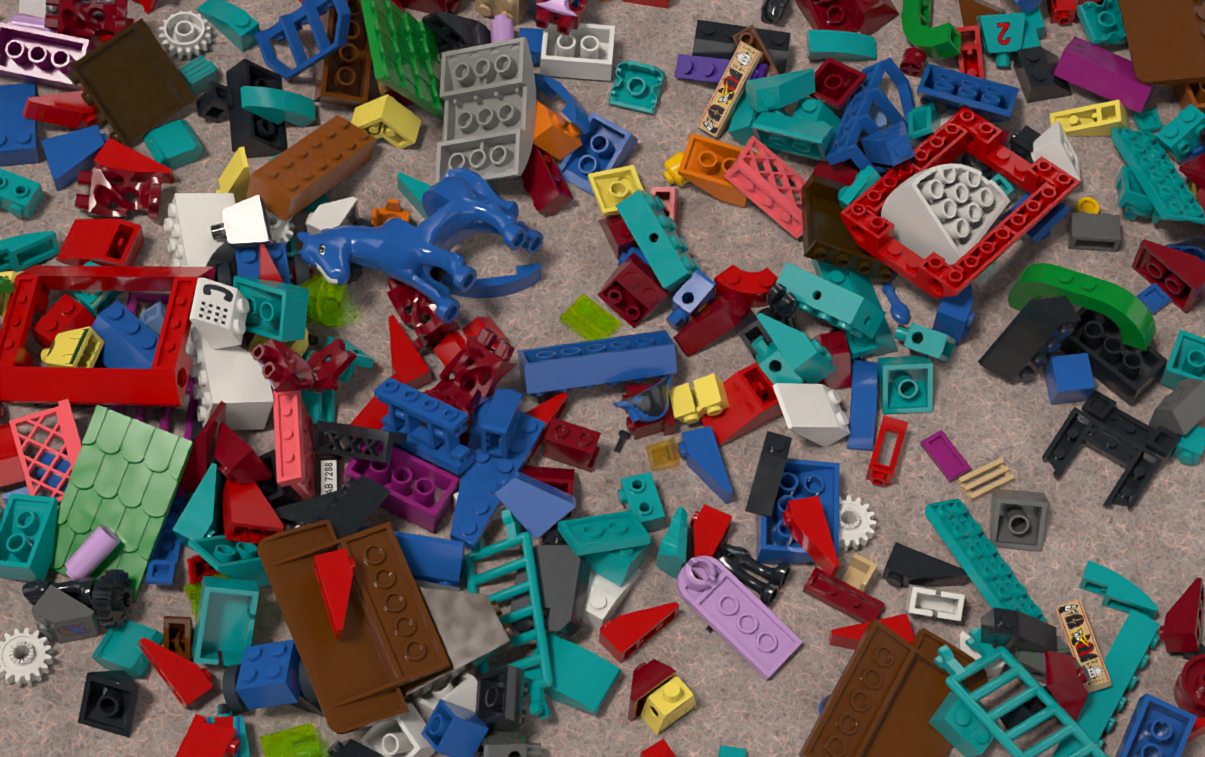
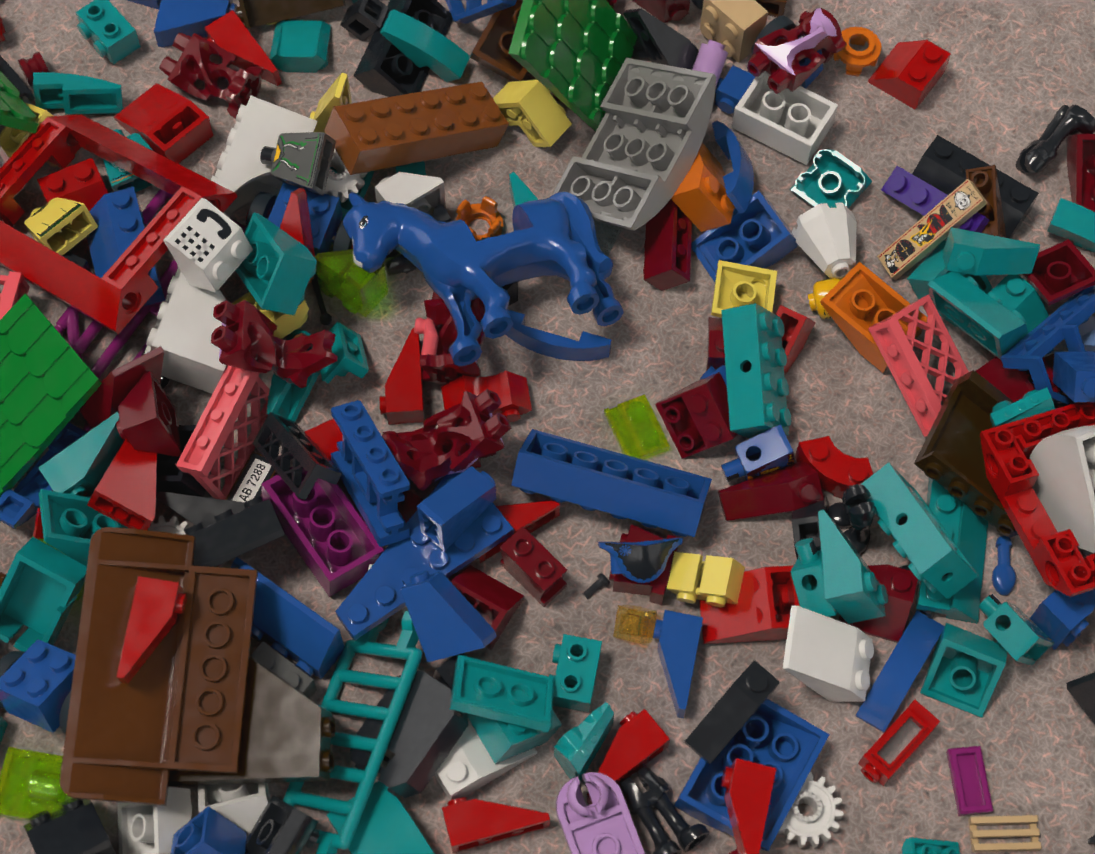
camera: 30 degrees right, 5 degrees up
(406, 314) = (431, 337): none -> coral arm
(659, 126) = (828, 238): none -> white cone

